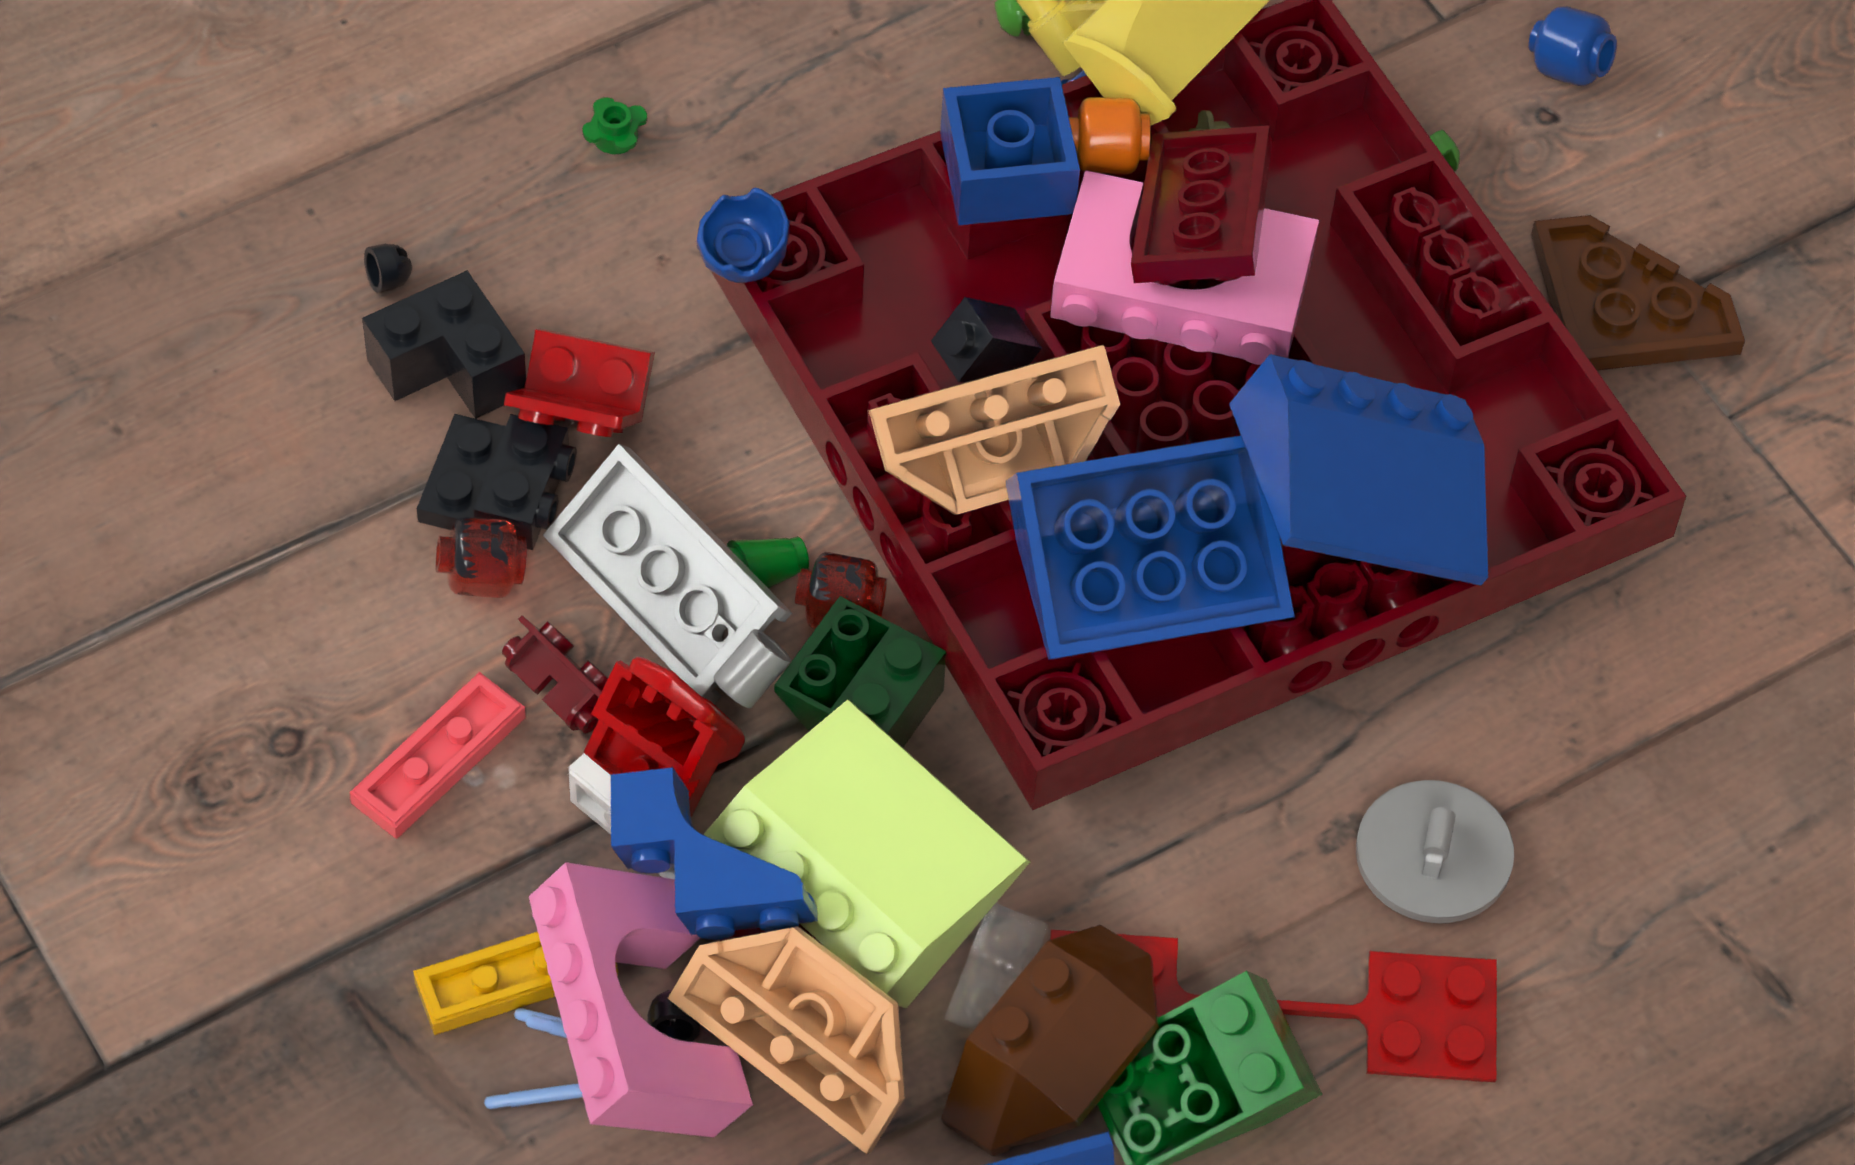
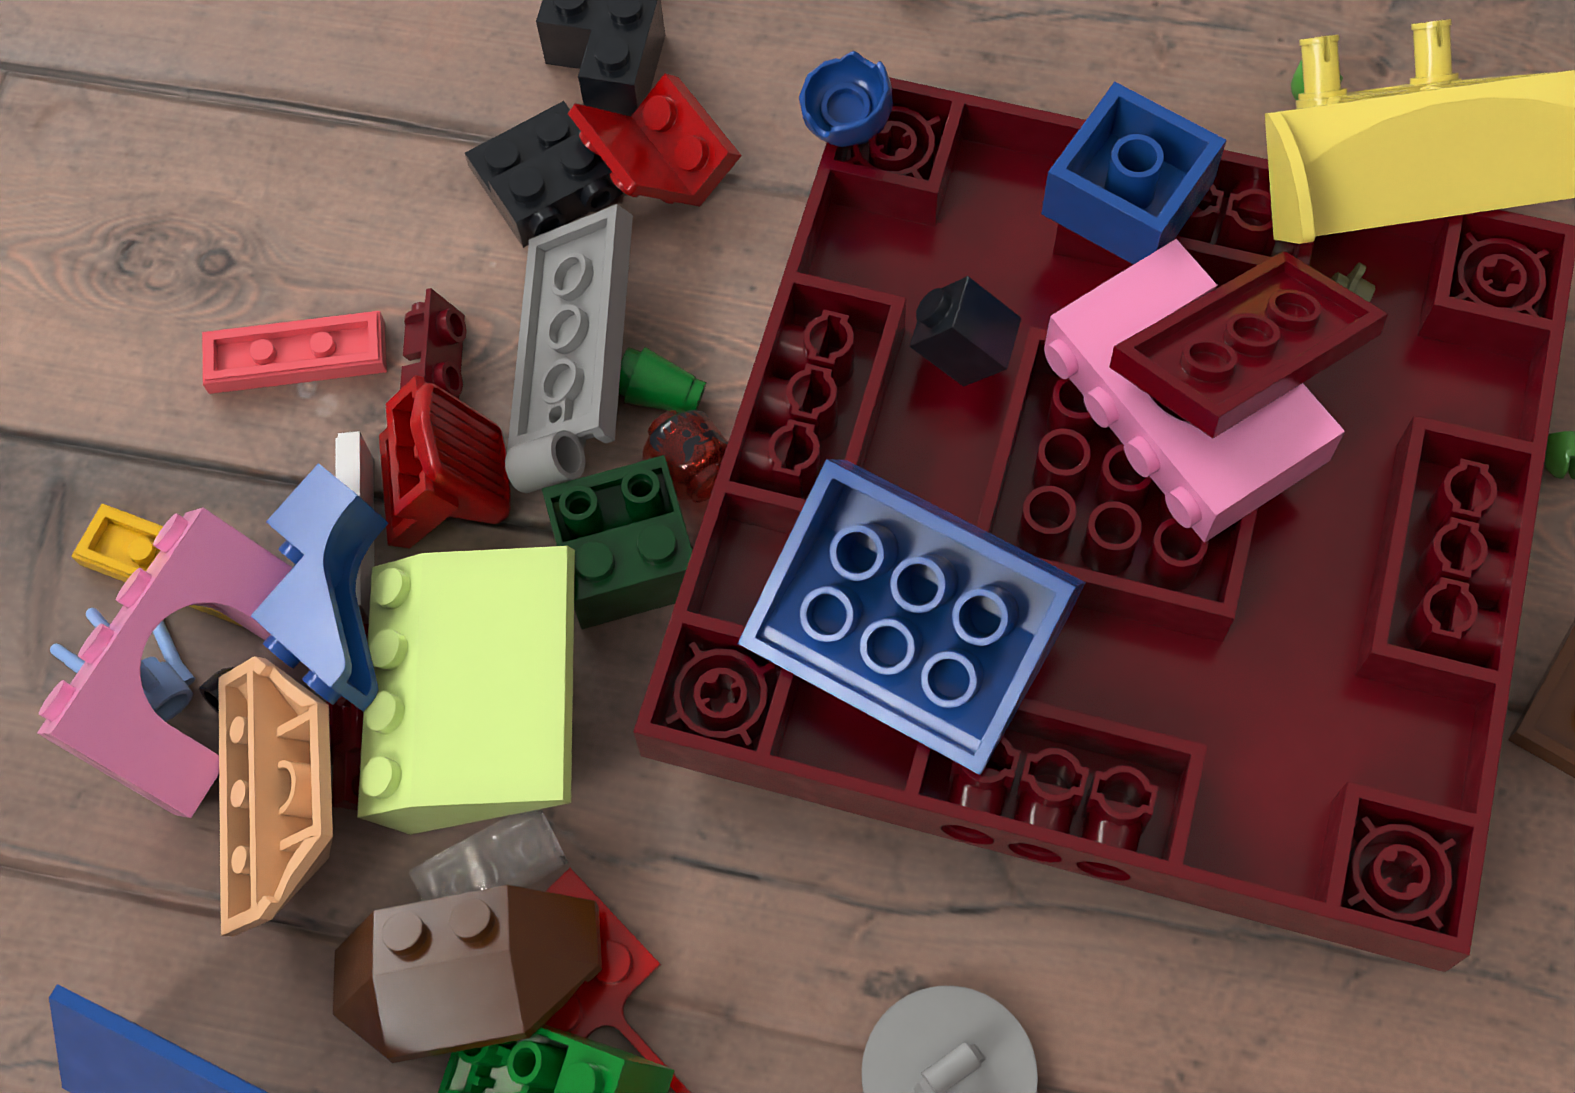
camera: 50 degrees right, 10 degrees up
(482, 557) = (465, 223): clear red head -> none
(980, 433) = (875, 406): light nougat wedge -> none
(1110, 135) = (1237, 224): orange head -> none
(1367, 468) = (1145, 700): blue slope -> none

